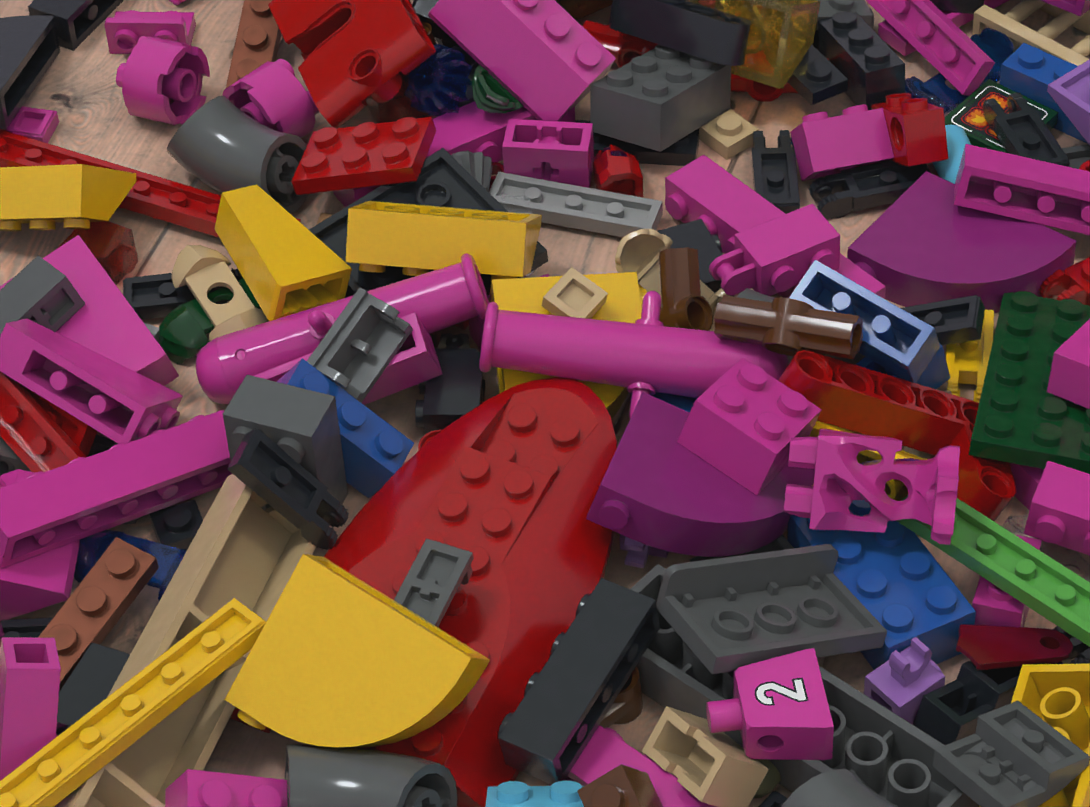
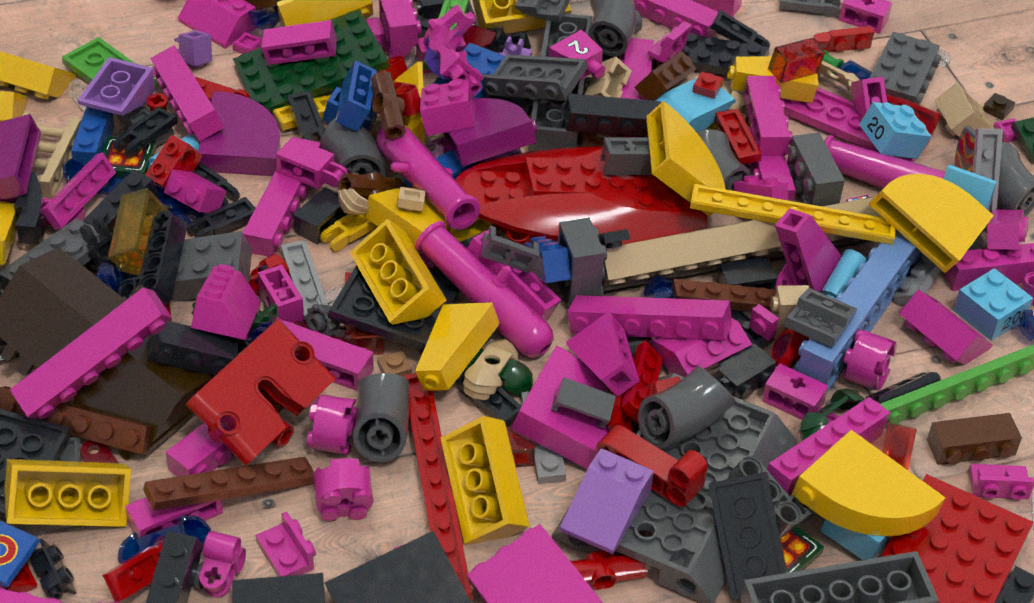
camera: 130 degrees left, 0 degrees up
(364, 155) = (353, 345): red plate -> none

